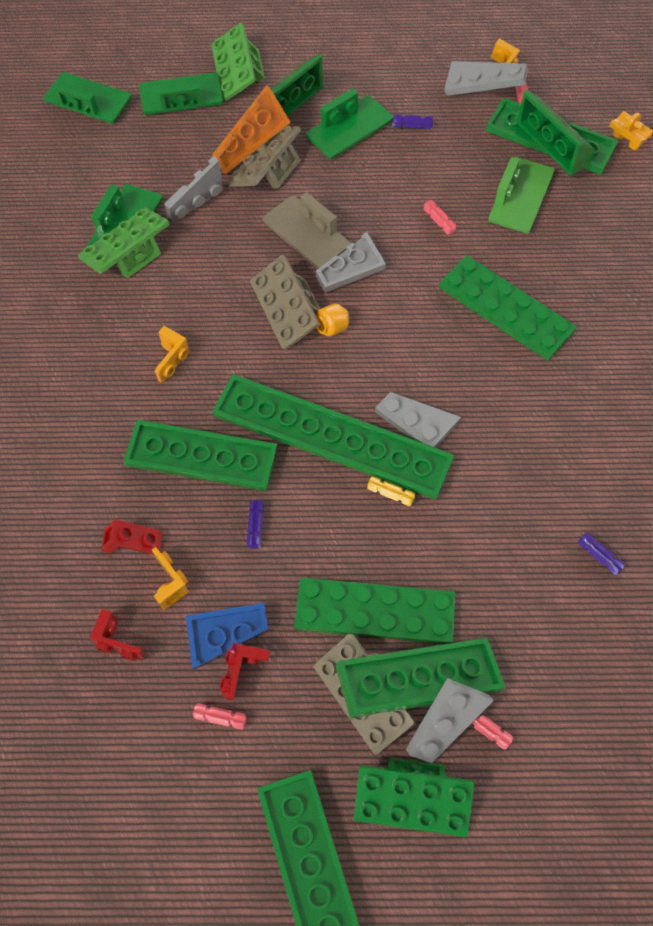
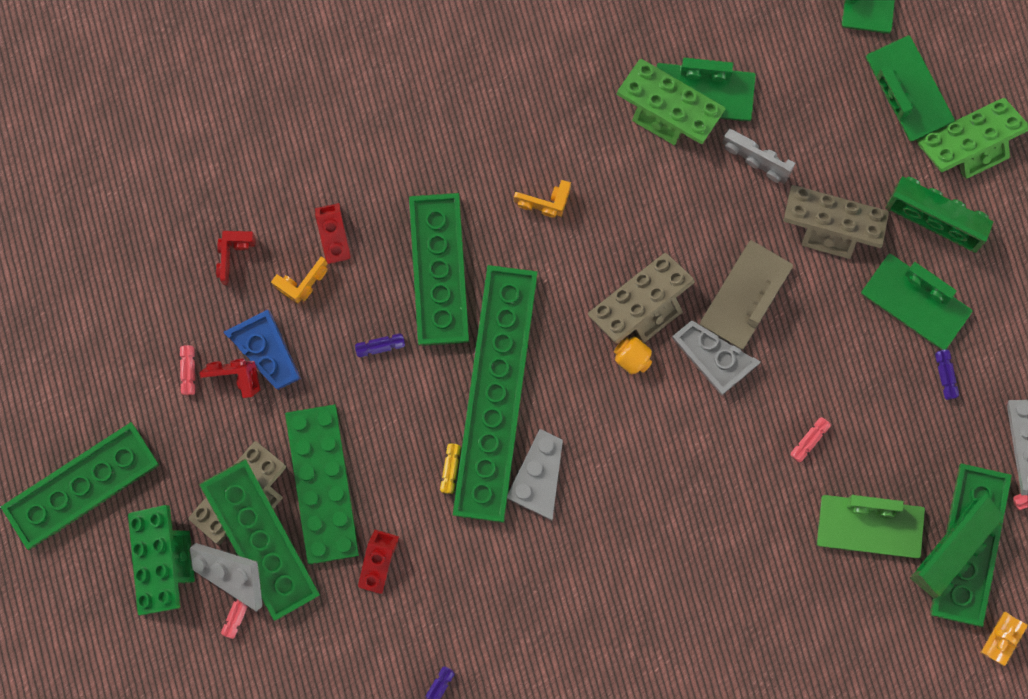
camera: 75 degrees right, 15 degrees up
(253, 129) = (861, 194): orange wing -> none
(466, 572) = (377, 561): none -> red bracket
(507, 307) = (707, 540): green plate -> none

